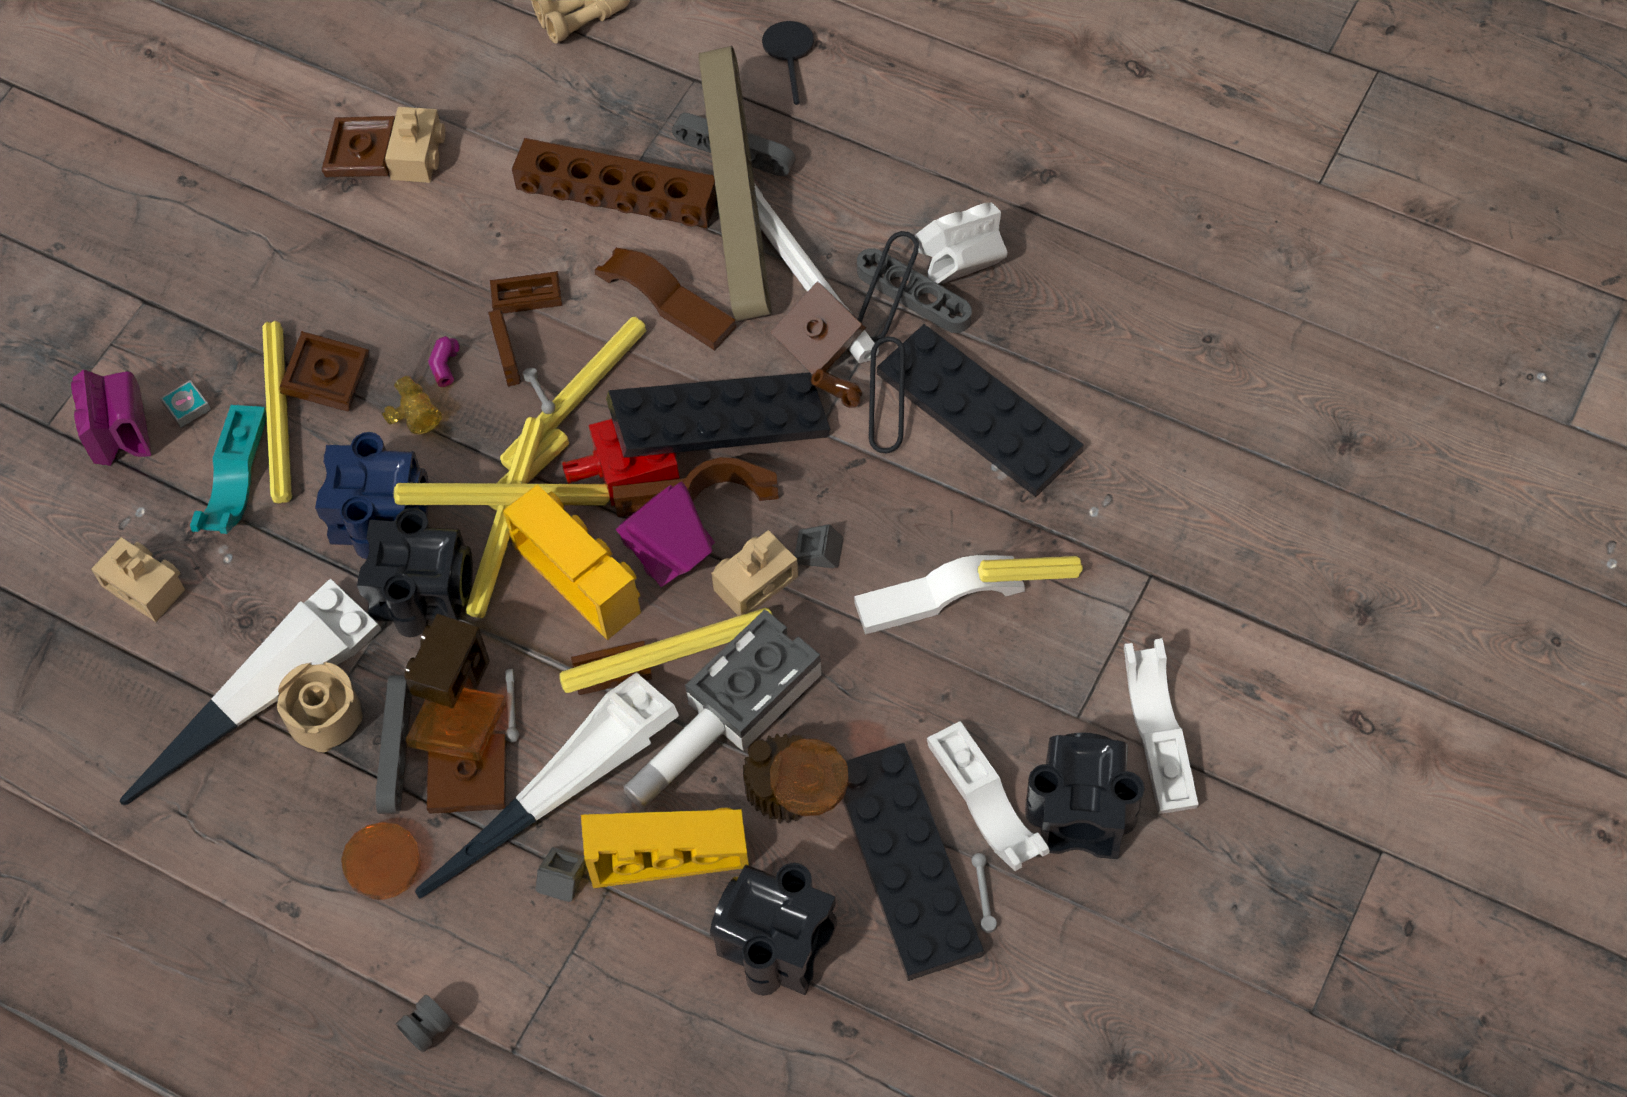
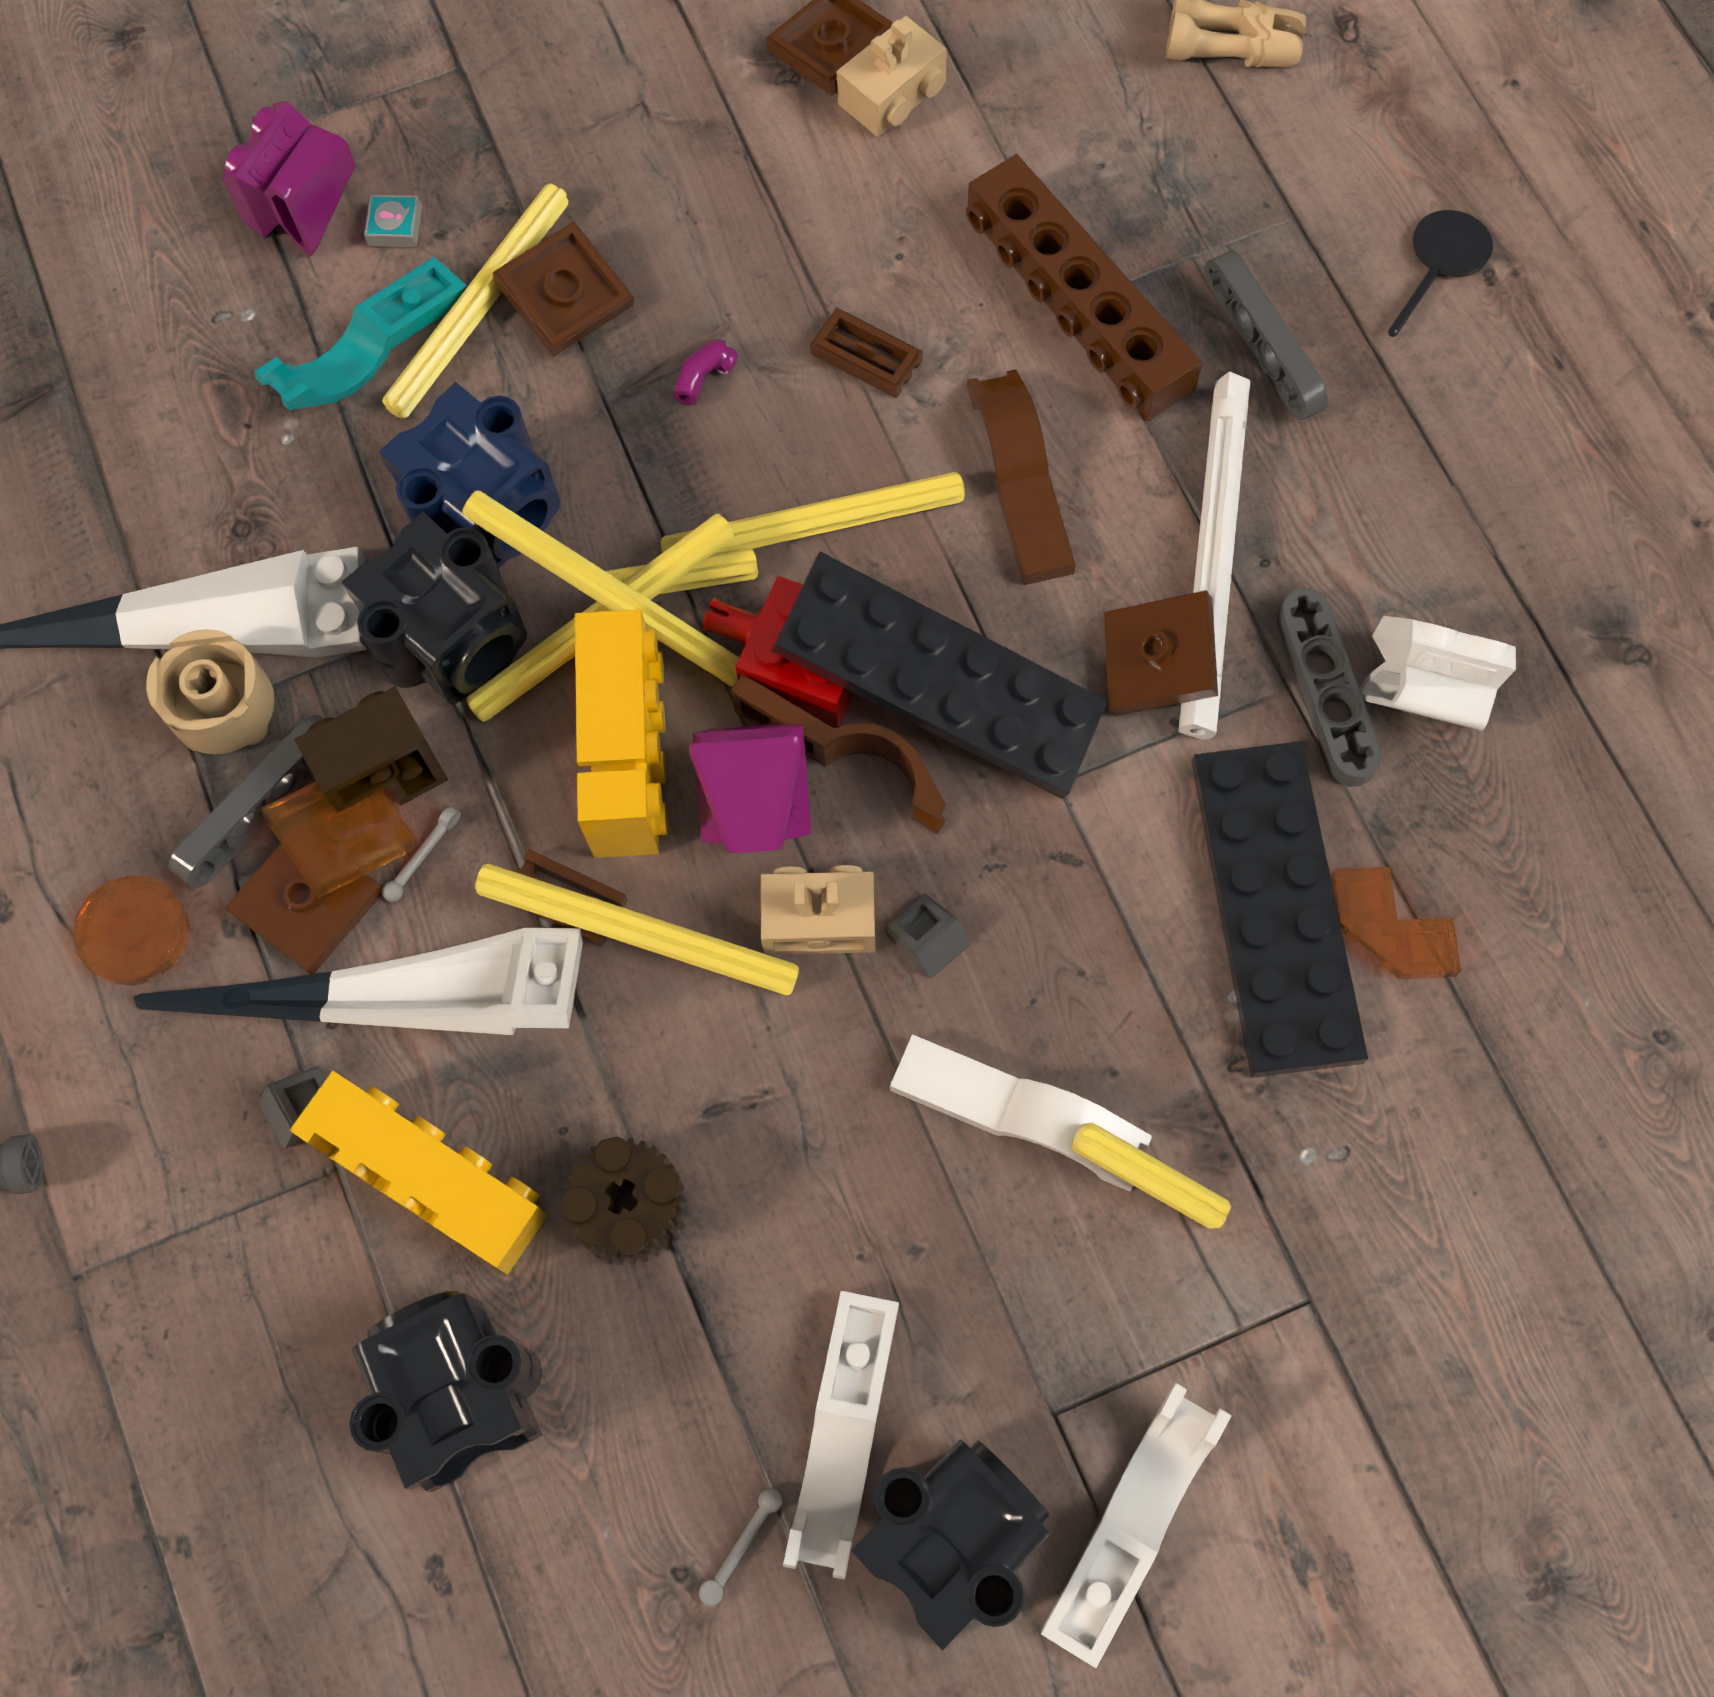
camera: 40 degrees right, 10 degrees up
(139, 578) = (169, 394): tan brick -> none
(414, 406) = (621, 405): clear yellow piece -> none
(504, 347) = (778, 404): reddish brown tile -> none
(530, 375) = (784, 461): light grey hinge -> none
(734, 184) = (1215, 386): dark tan beam -> none
(734, 697) = (660, 1056): piece -> none
(809, 777) = (634, 1239): clear orange tile -> none
(845, 390) = (1119, 736): reddish brown arm -> none
(901, 395) = (1242, 745): black piece -> none
(902, 286) = (1312, 673): black piece -> none
(908, 864) = (684, 1430): black plate -> none
(1057, 382) = (1404, 946): none -> clear orange tile

